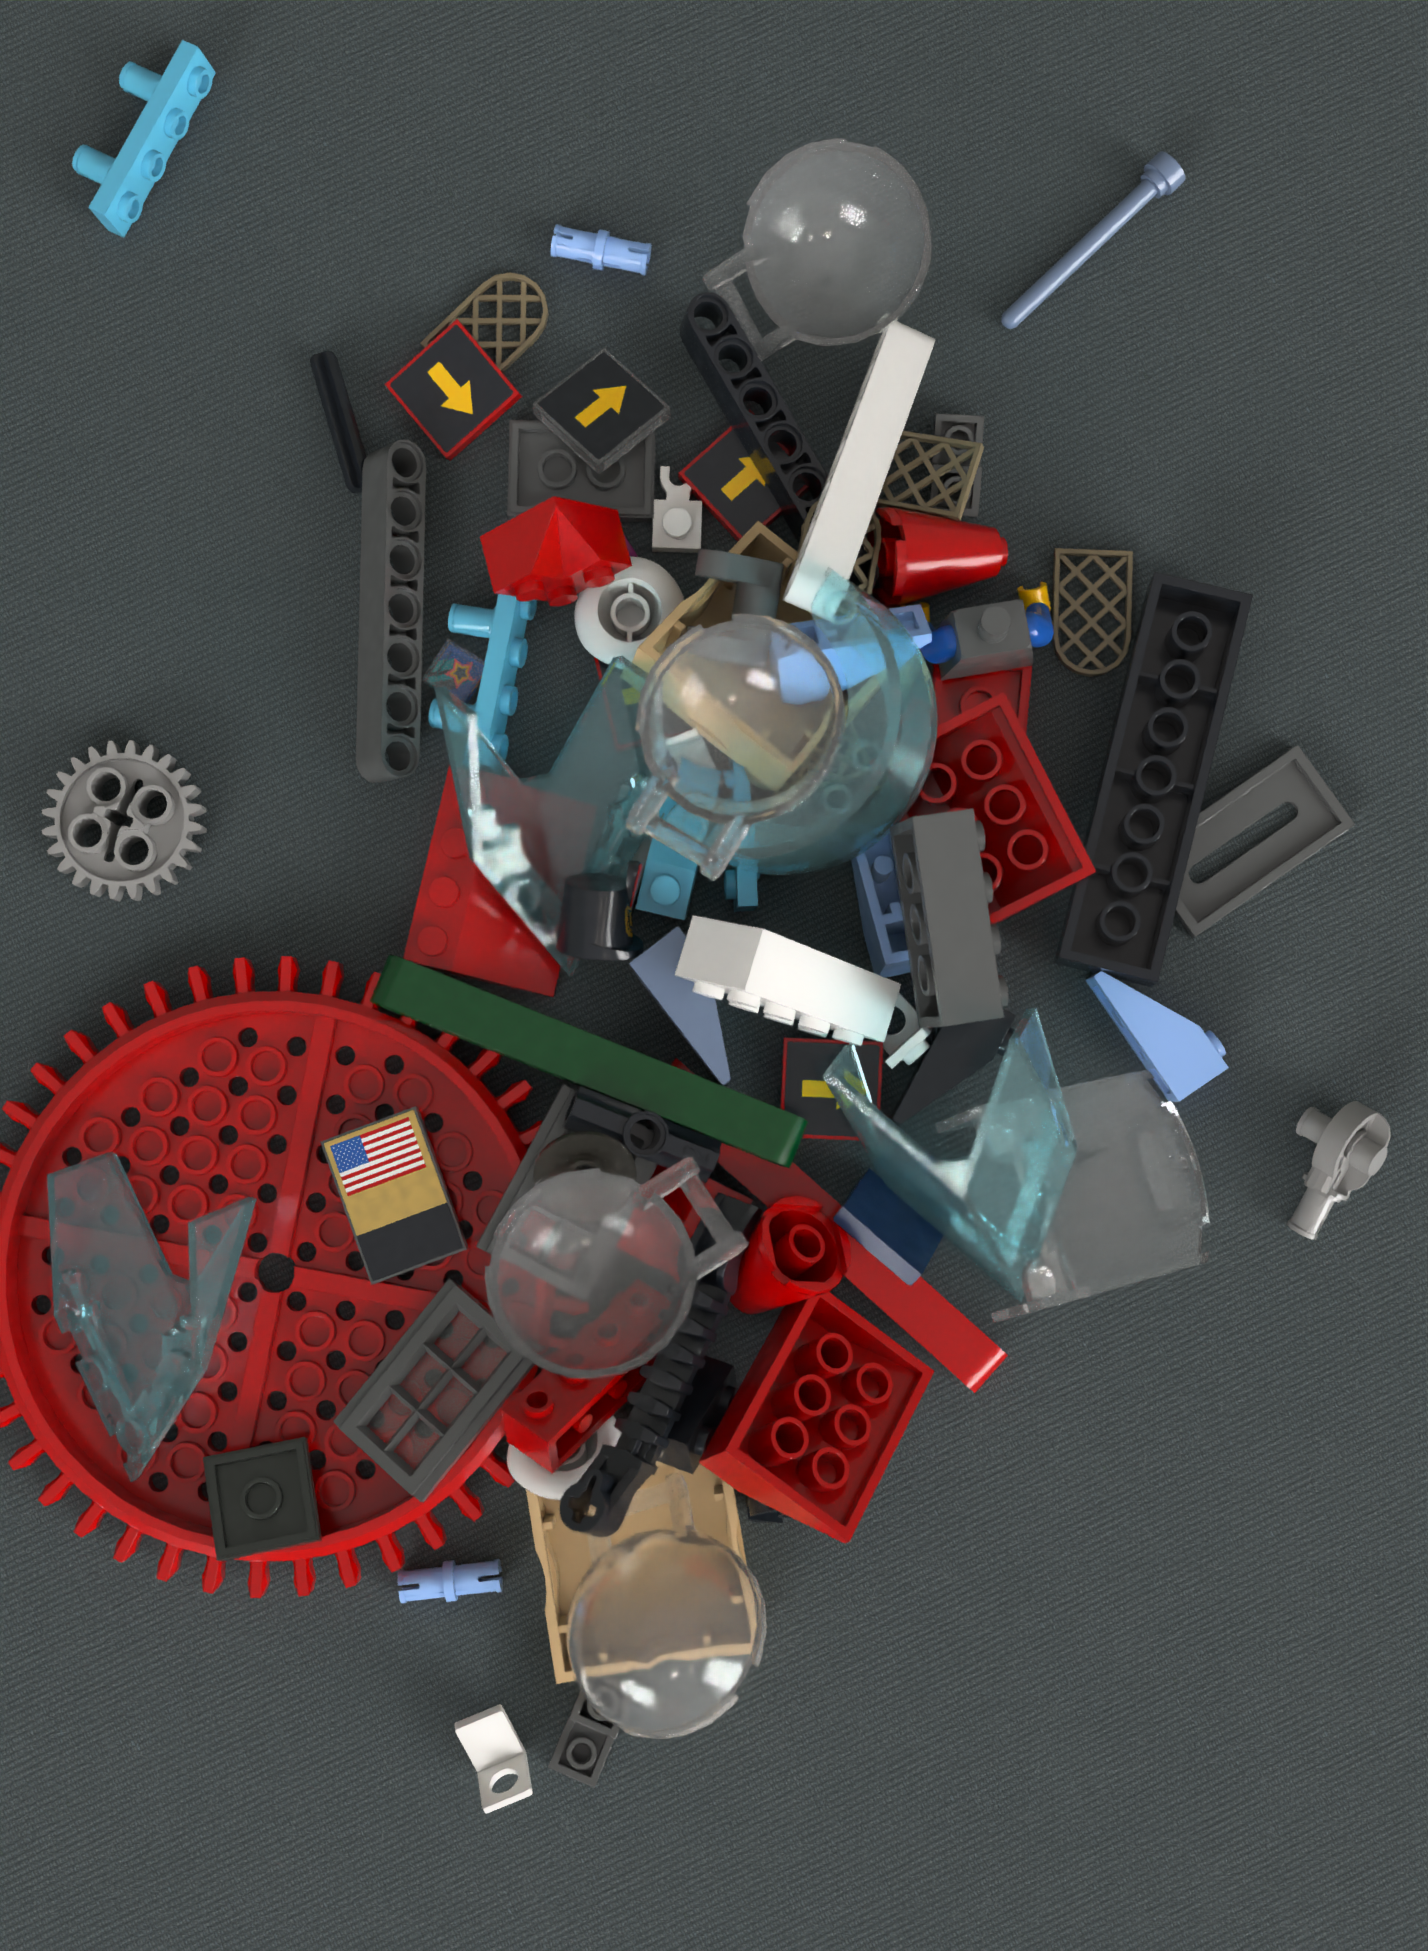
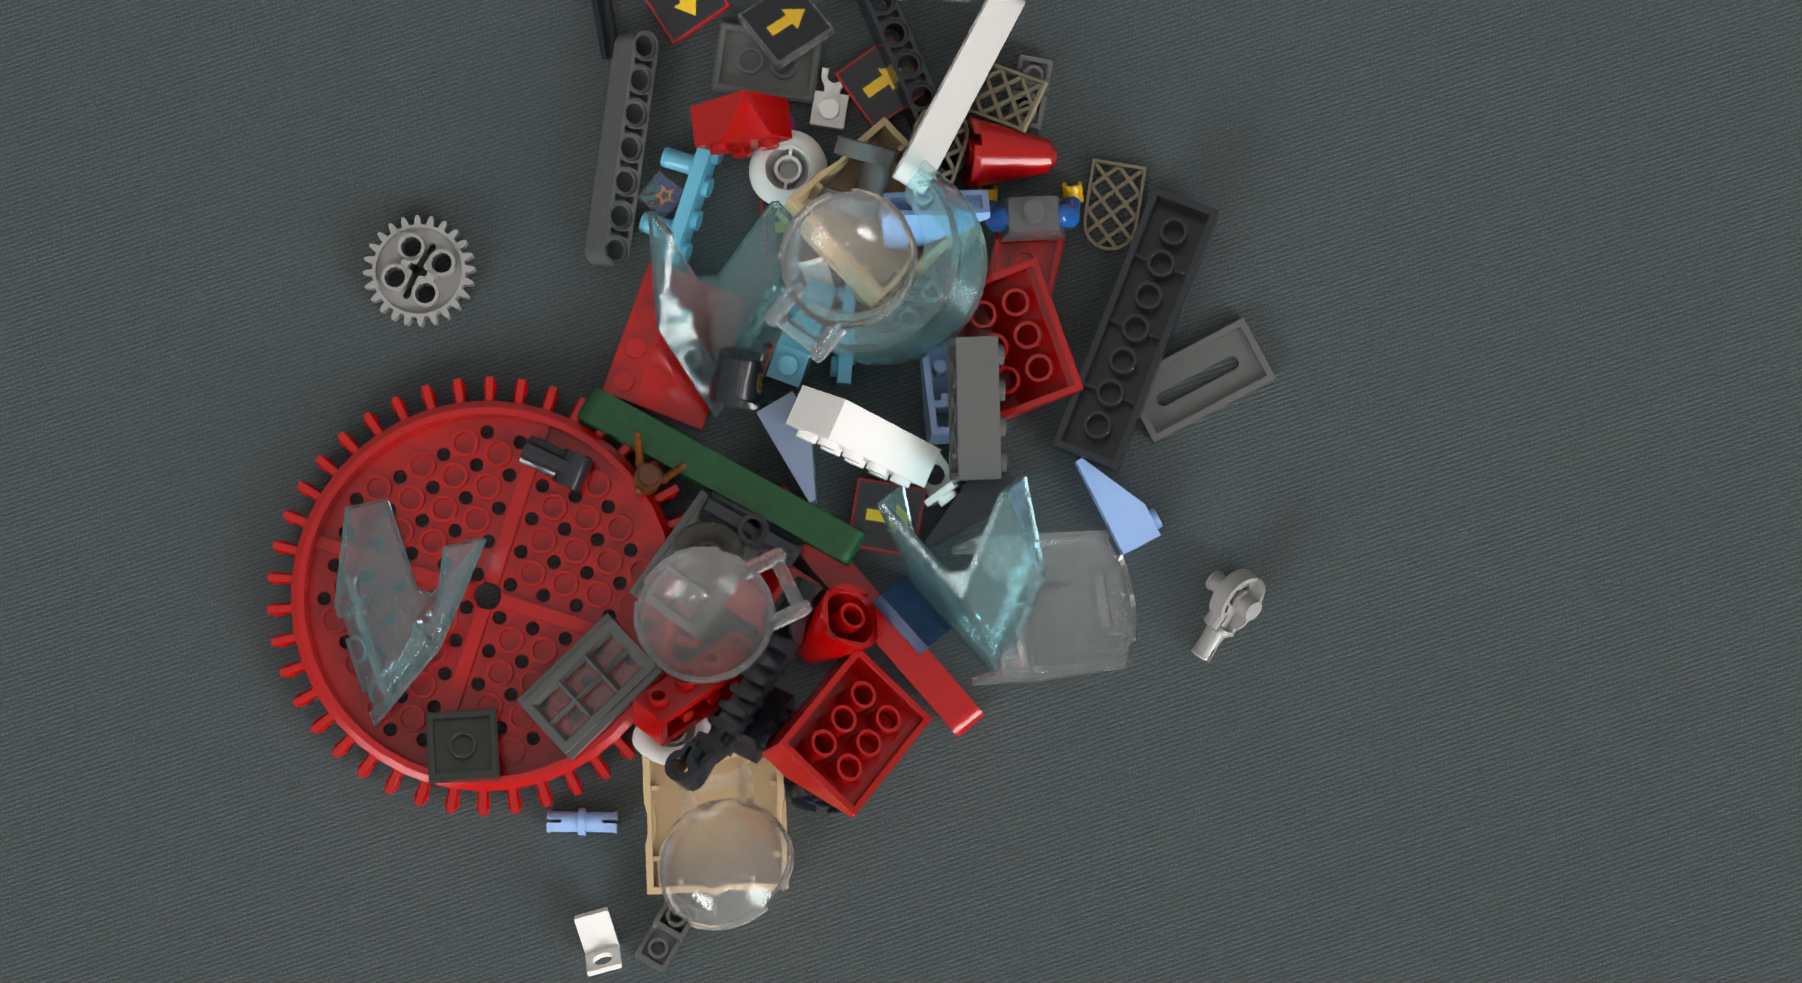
camera: 15 degrees right, 0 degrees up
(361, 1074) = (562, 465): none -> black piece
(394, 1195) = (576, 552): tile -> none
(483, 1073) = (648, 475): none -> reddish brown plant

